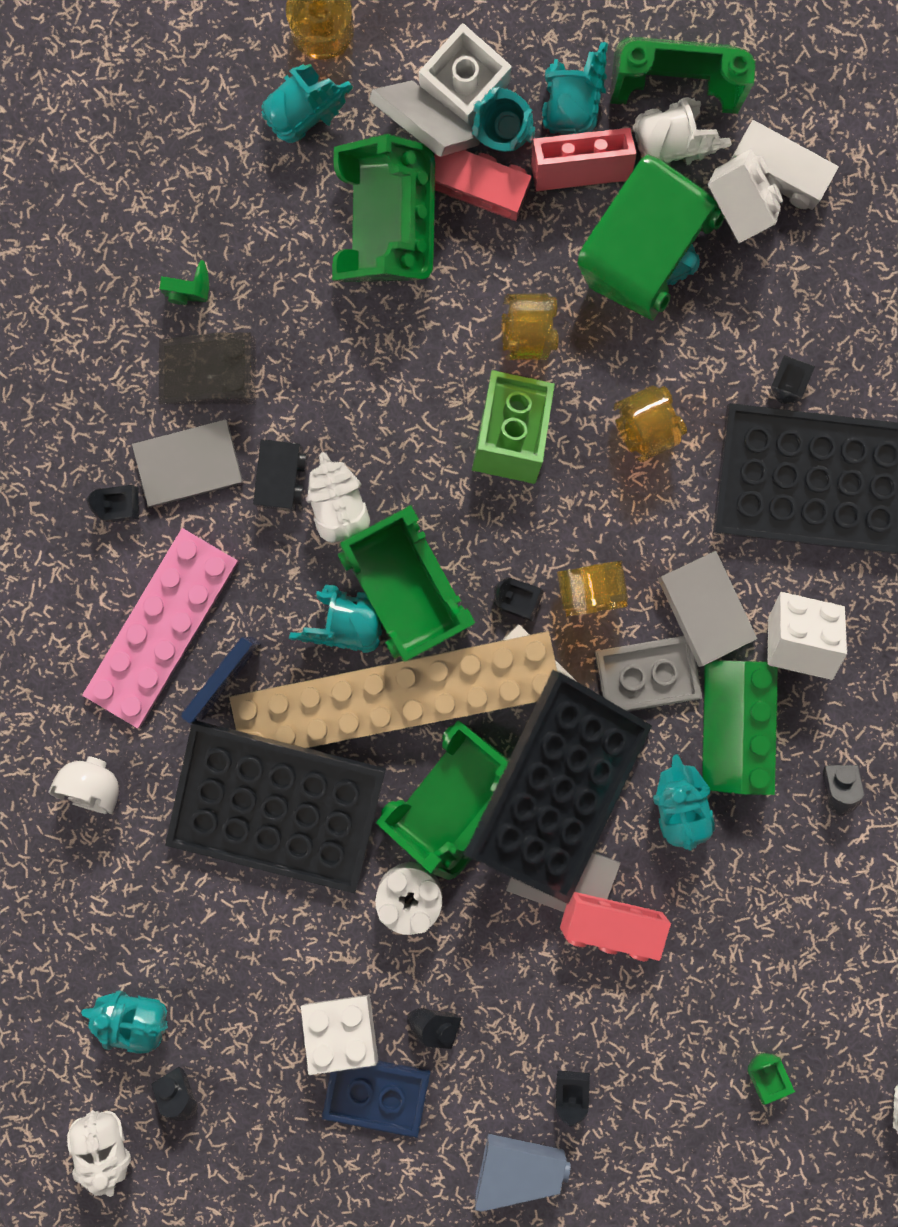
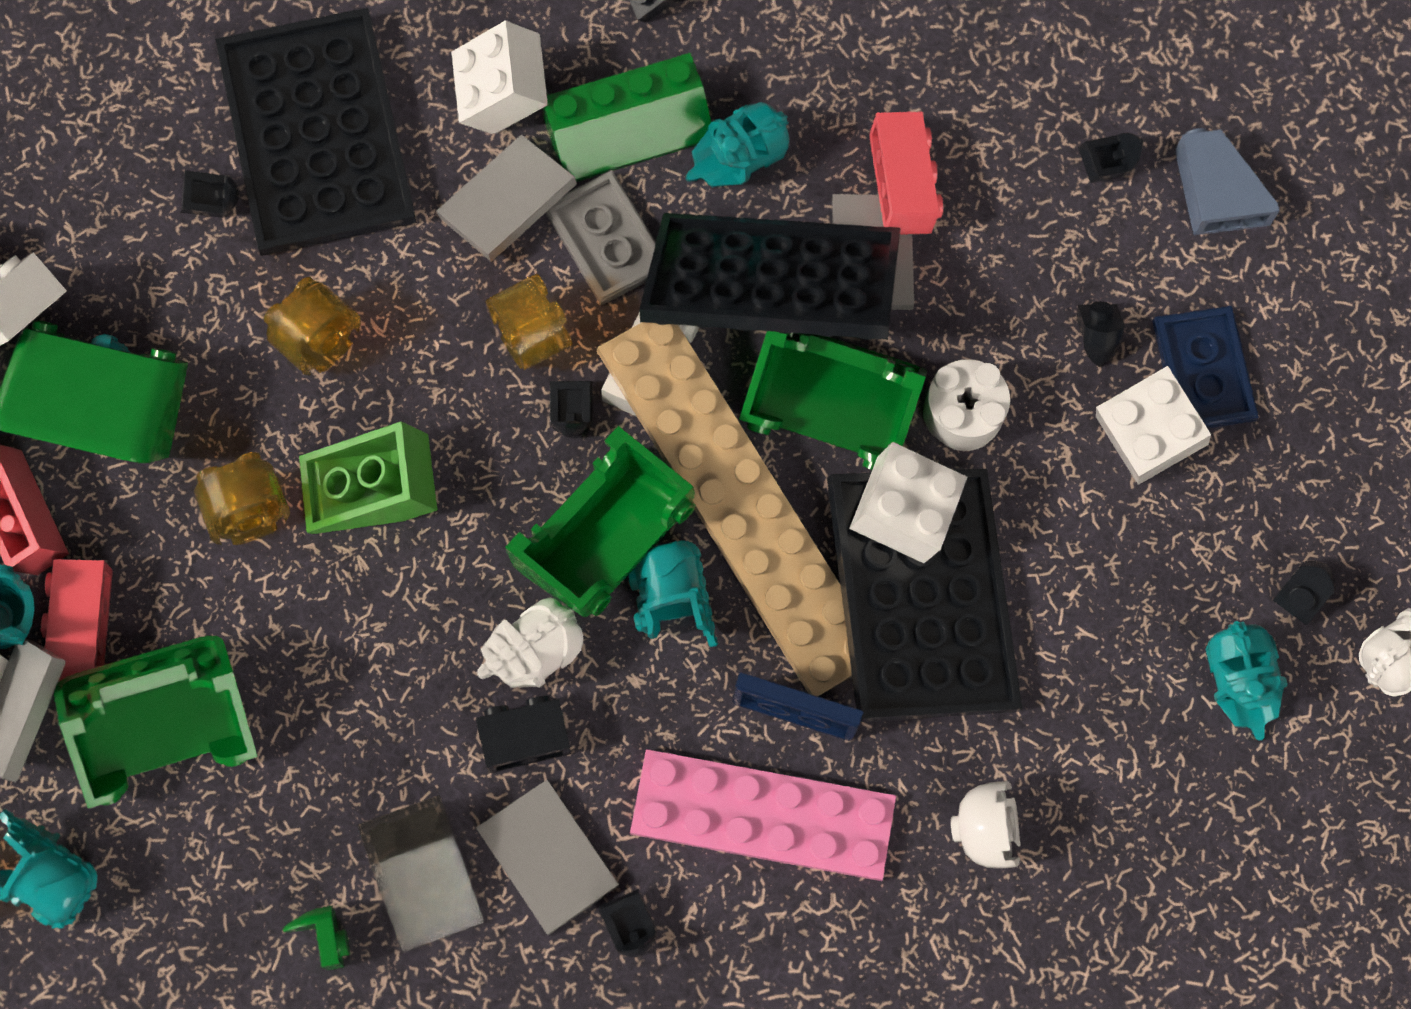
camera: 115 degrees left, 15 degrees down
(339, 821) = (908, 502): none -> white brick

